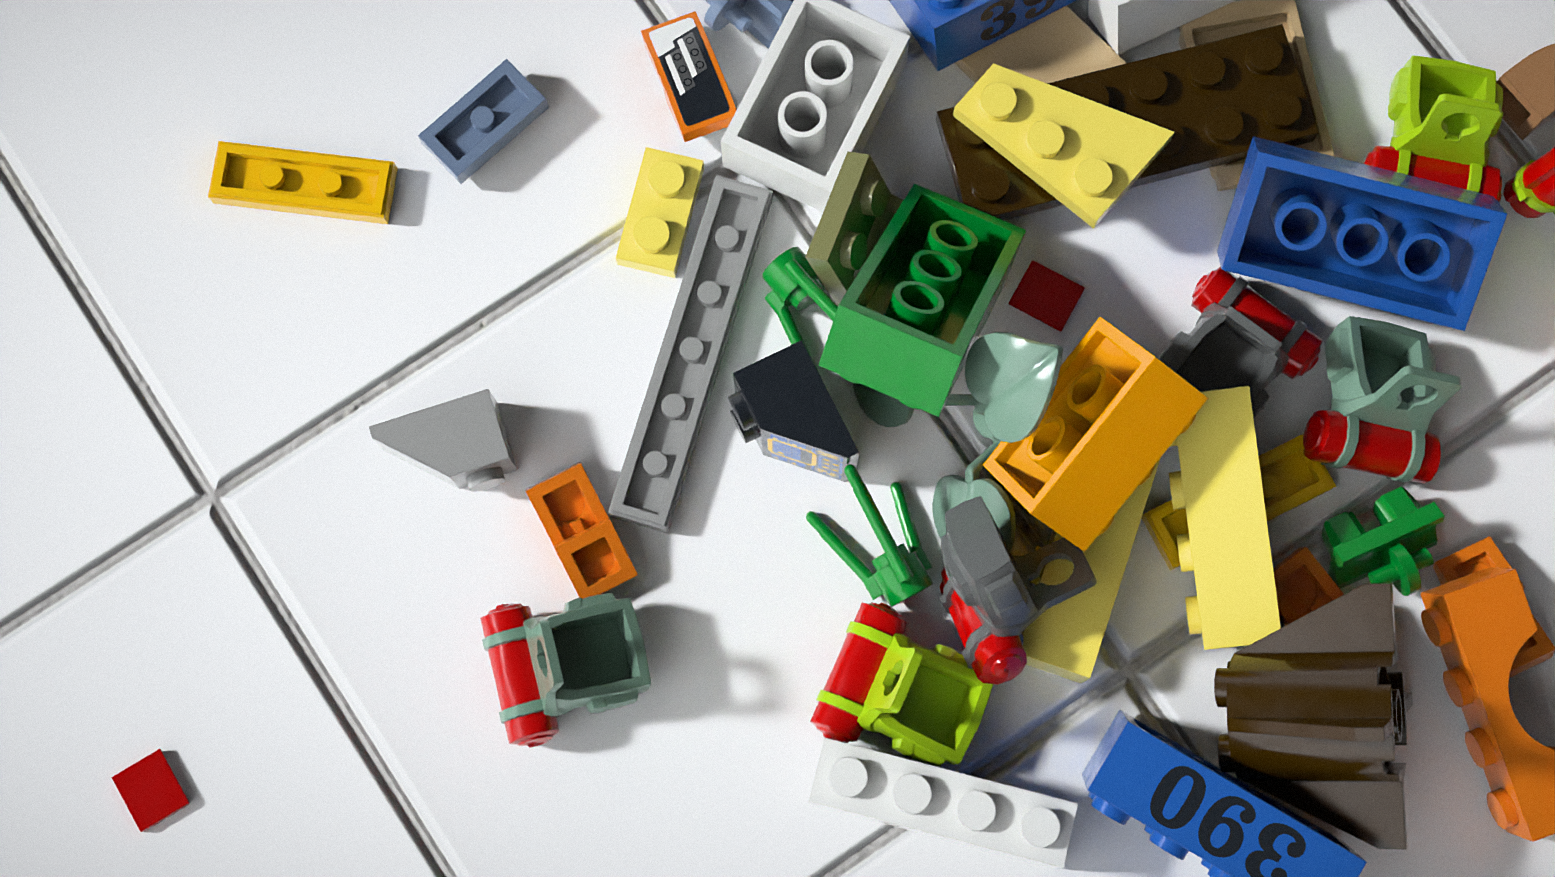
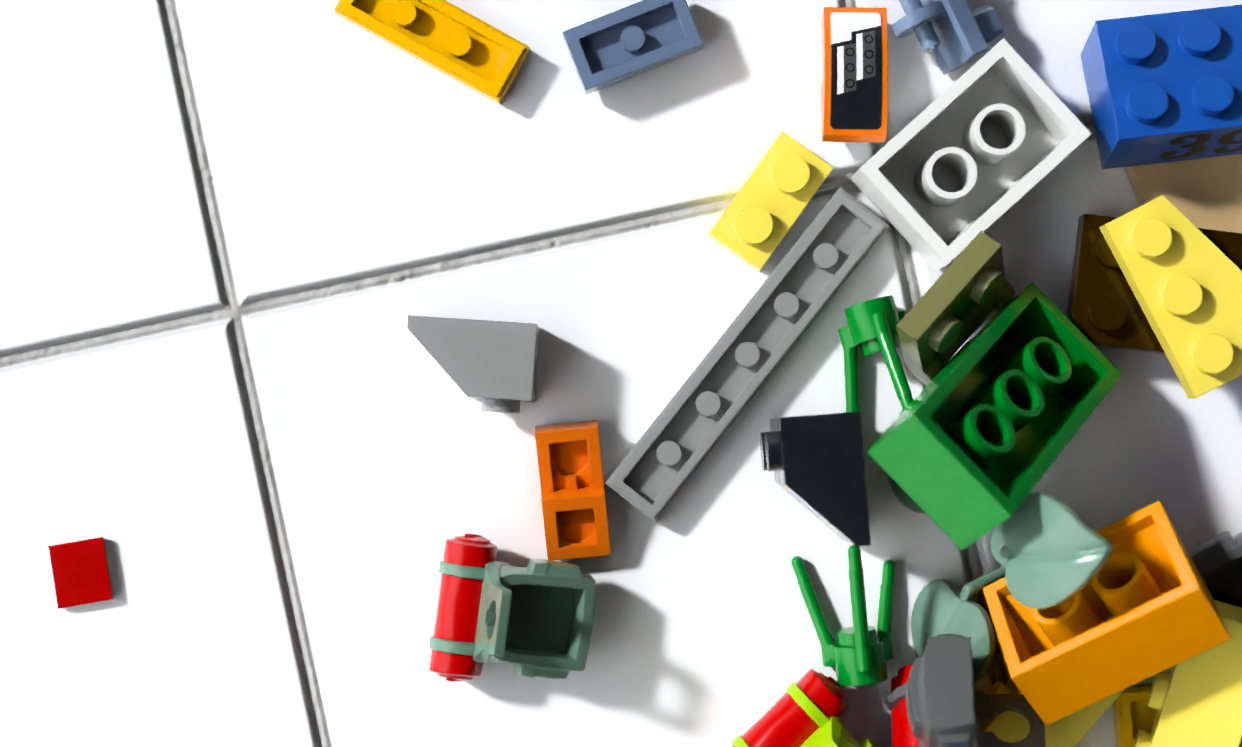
camera: 20 degrees right, 10 degrees up
(1046, 295) = (1113, 436): red piece -> none

